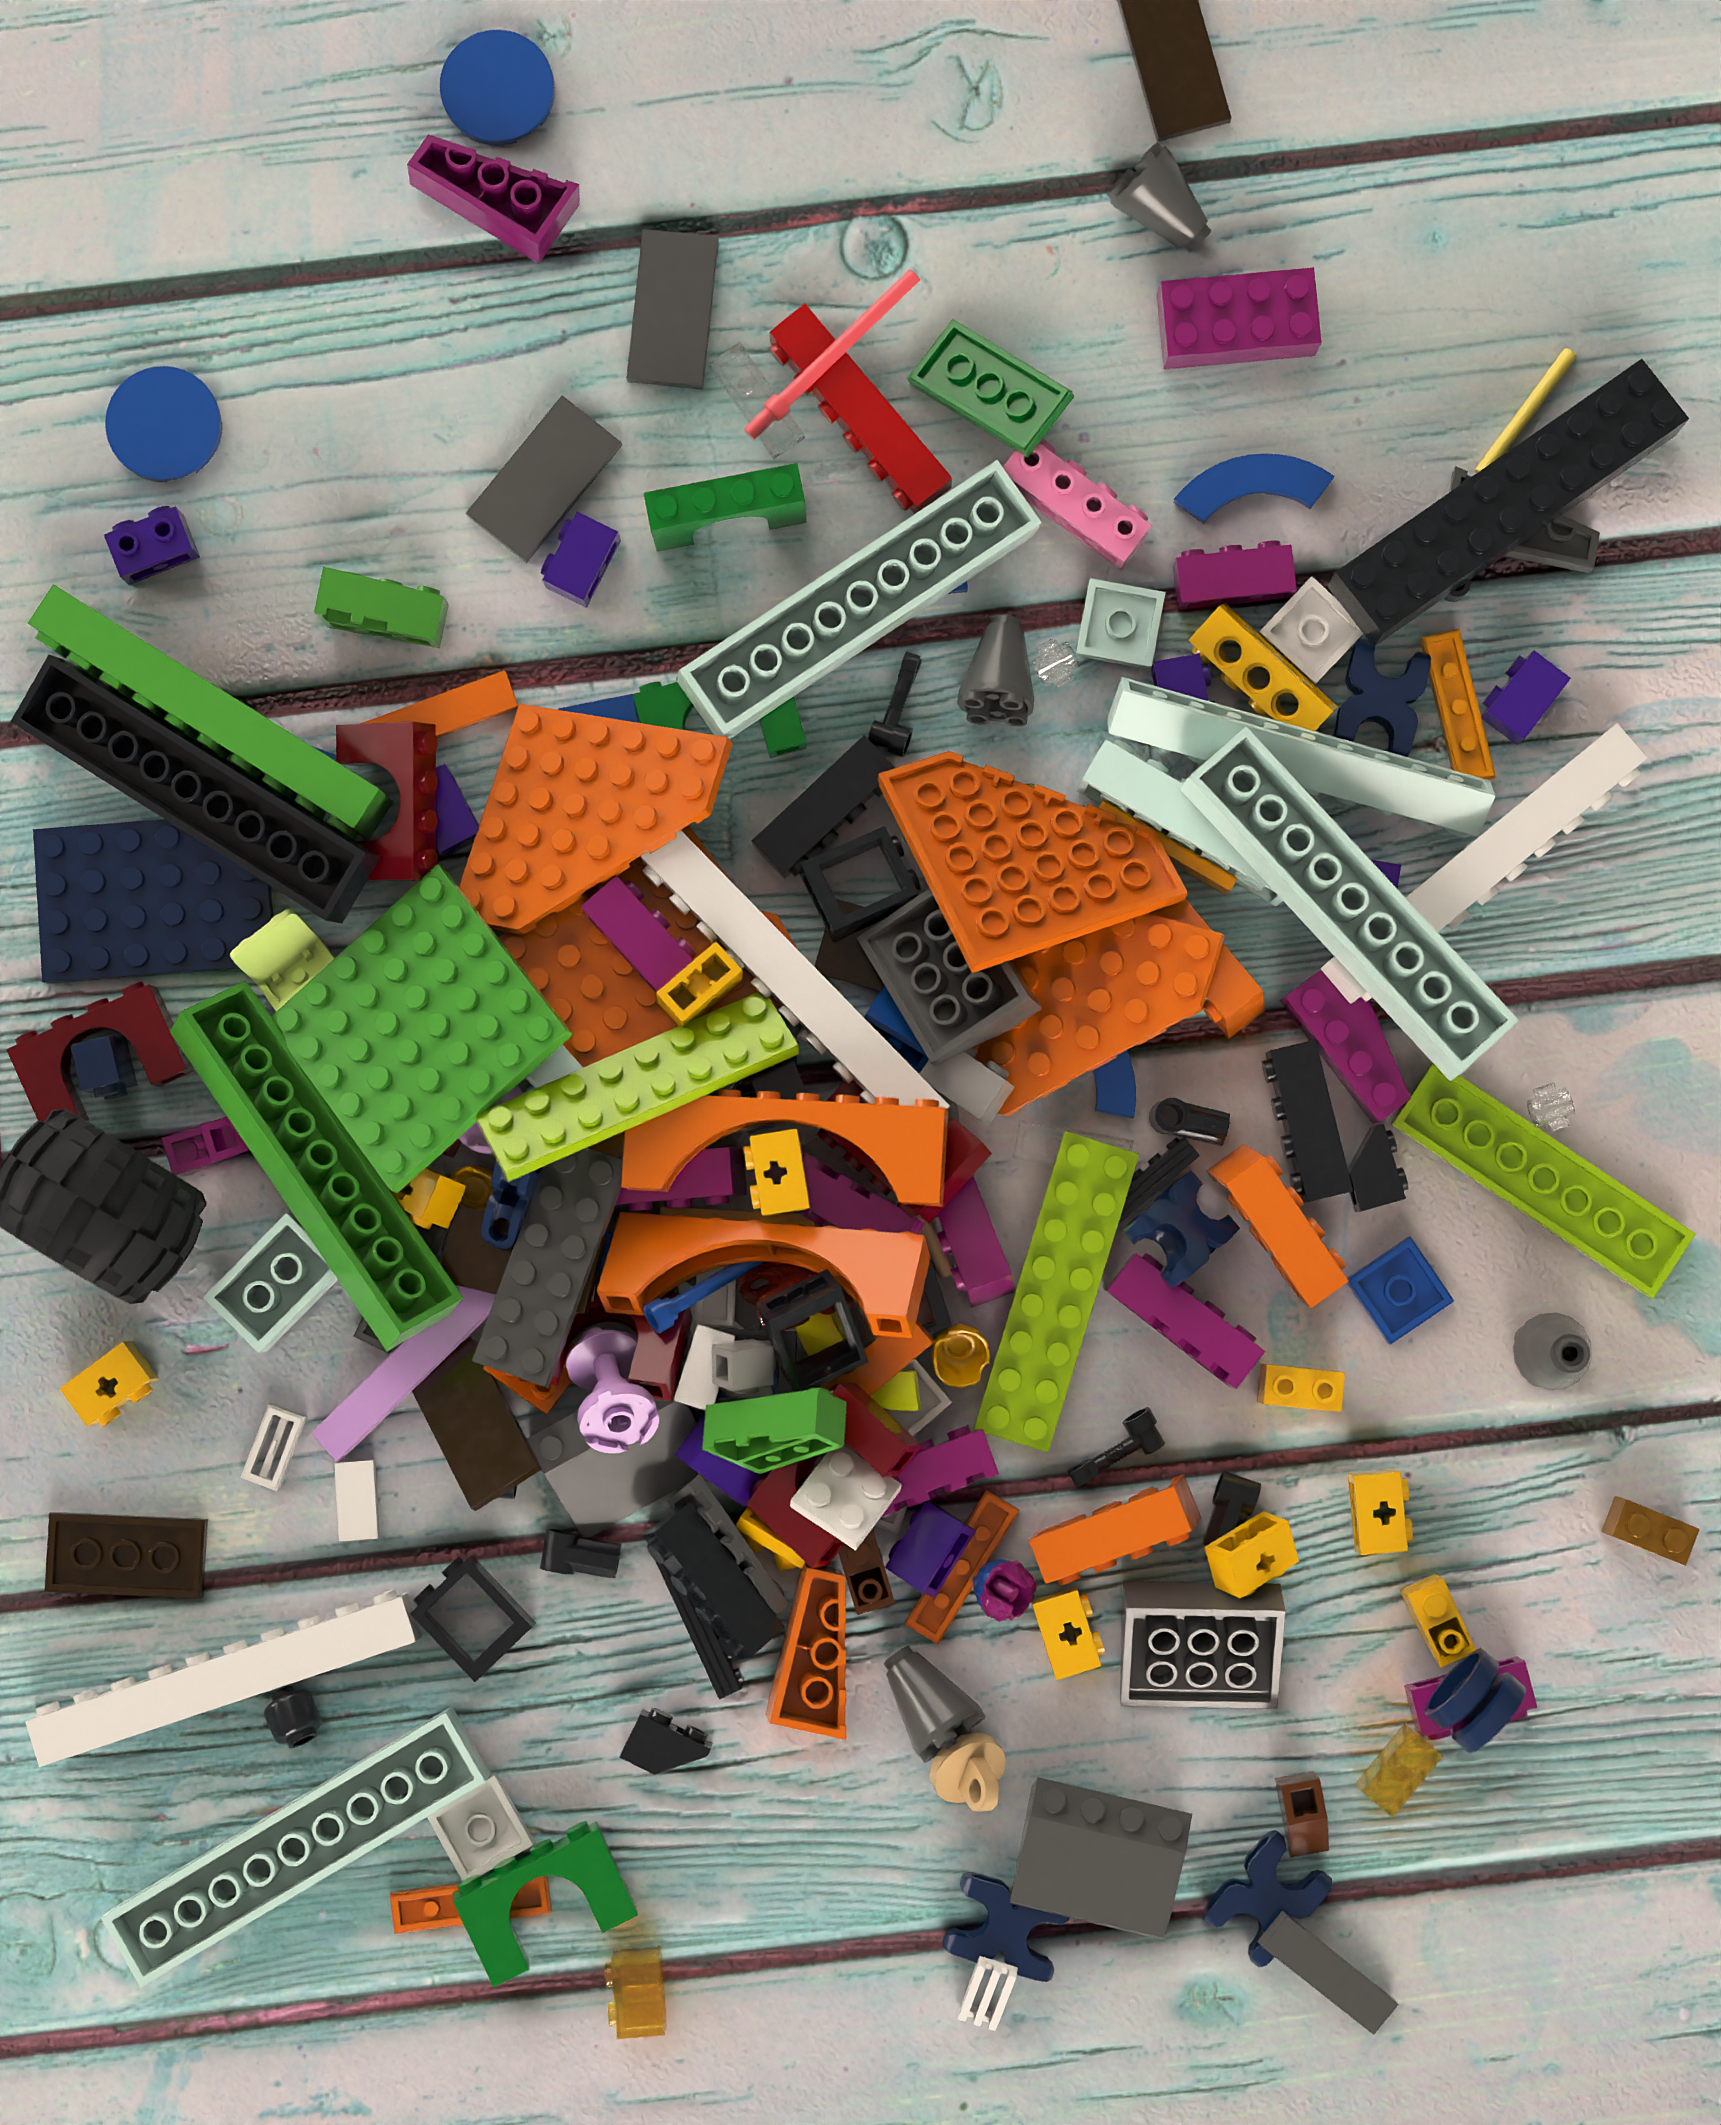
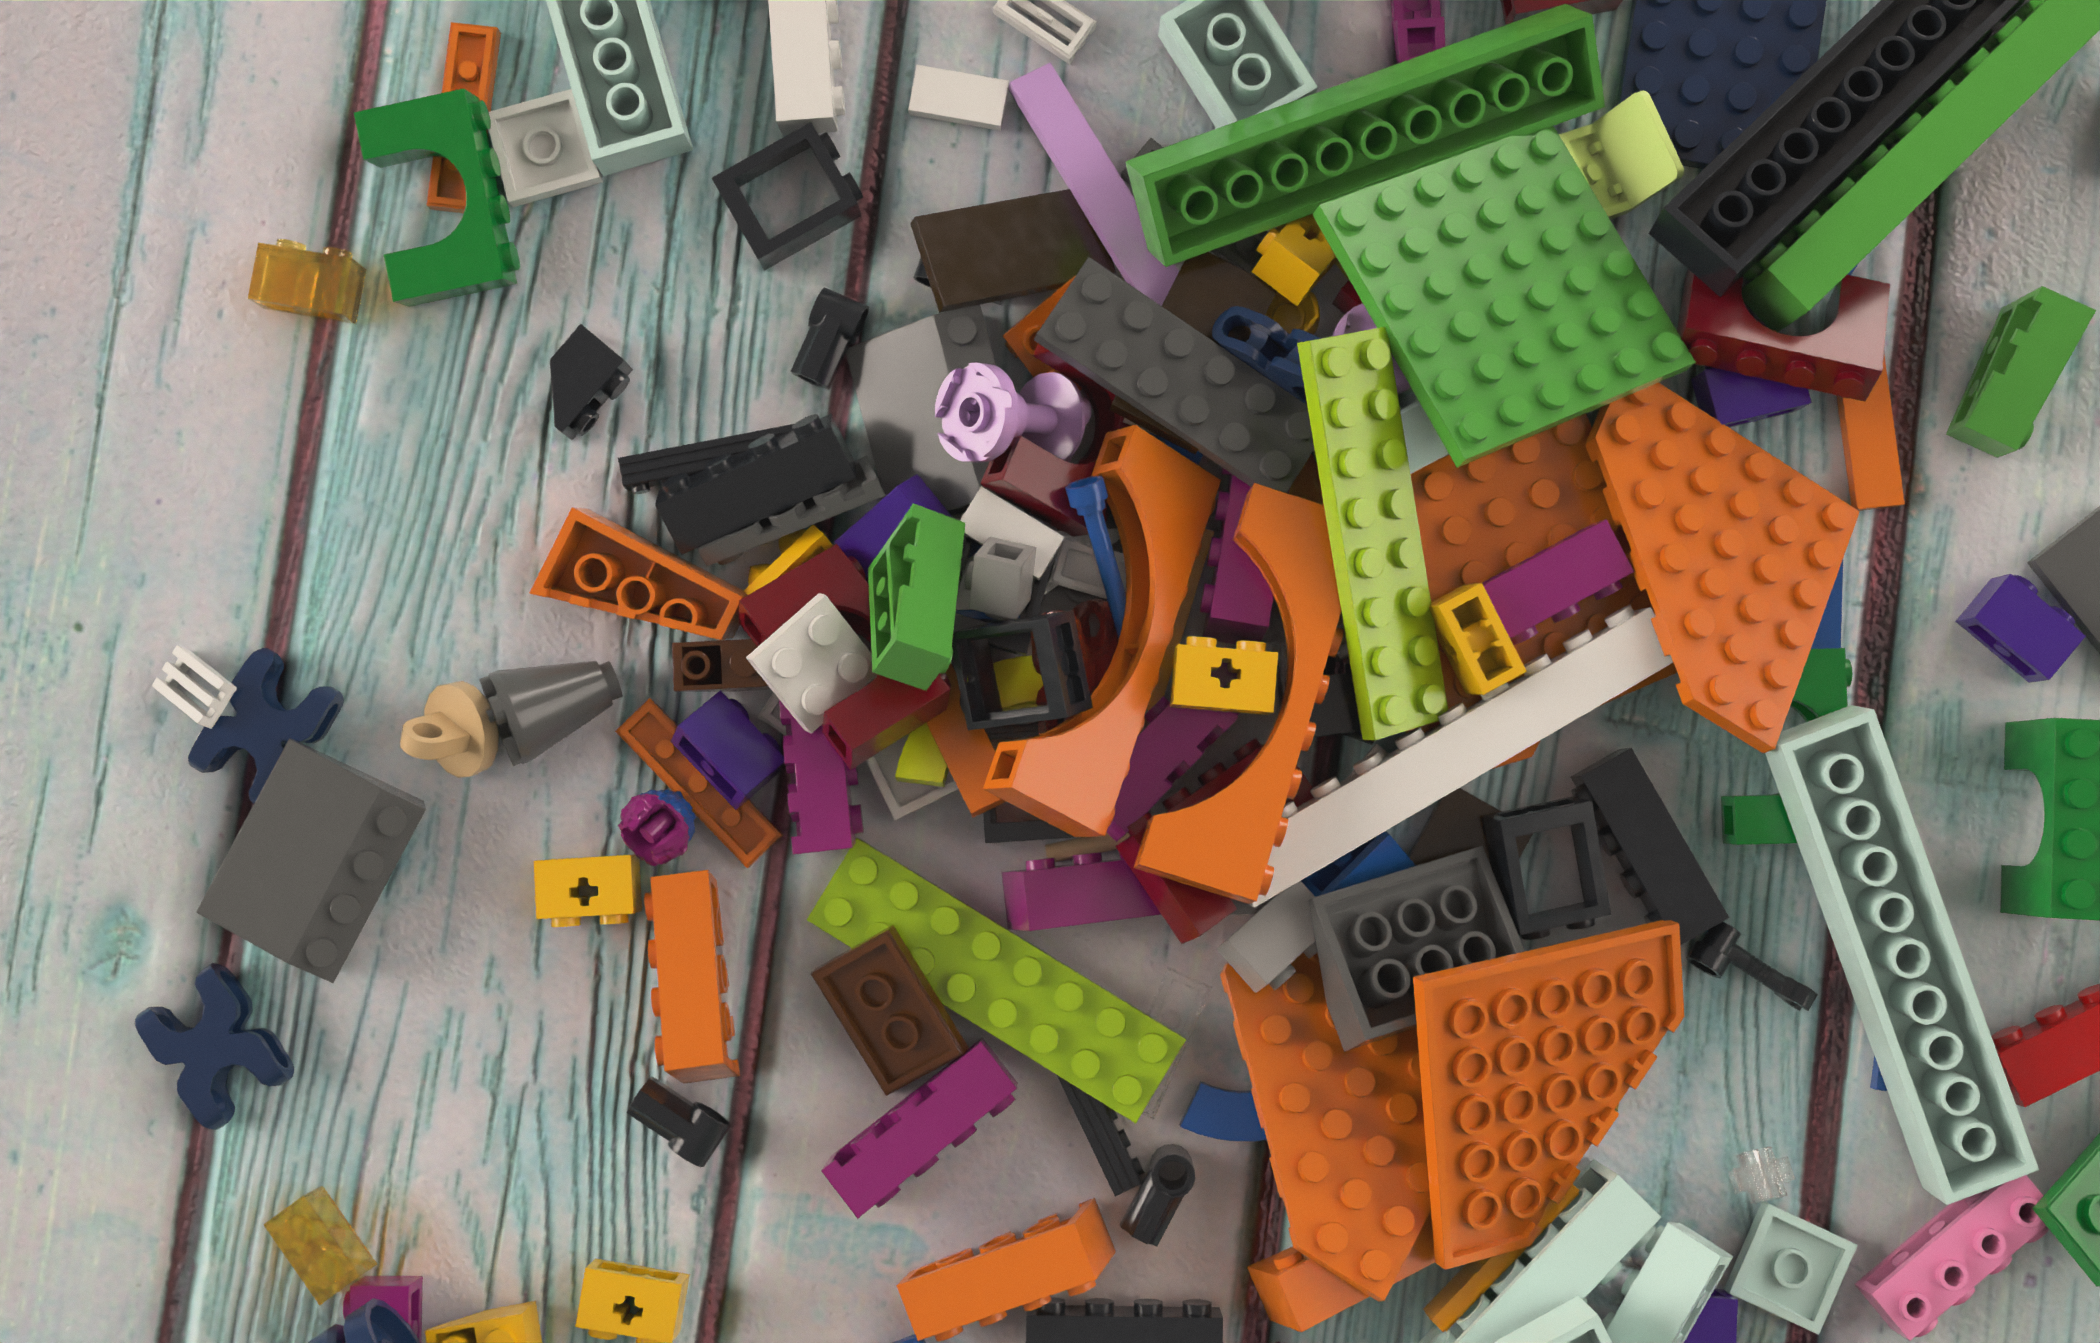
camera: 105 degrees right, 0 degrees up
(959, 1355) = (947, 843): yellow hair -> none
(999, 676) = (1759, 1100): dark grey cone -> none
(1101, 1368) = (889, 1010): none -> reddish brown tile
(1142, 1435) = (798, 1039): black brick -> none
(1181, 1229) = (1031, 1151): dark blue piece -> none
(1200, 1645) = (532, 1046): dark grey slope -> none
(1252, 1554) = (620, 1135): yellow brick -> none
(1301, 1387) = (804, 1247): yellow brick -> none
(1303, 1813) = (302, 1116): reddish brown slope -> none
(1327, 1972) = (107, 1096): dark grey tile -> none

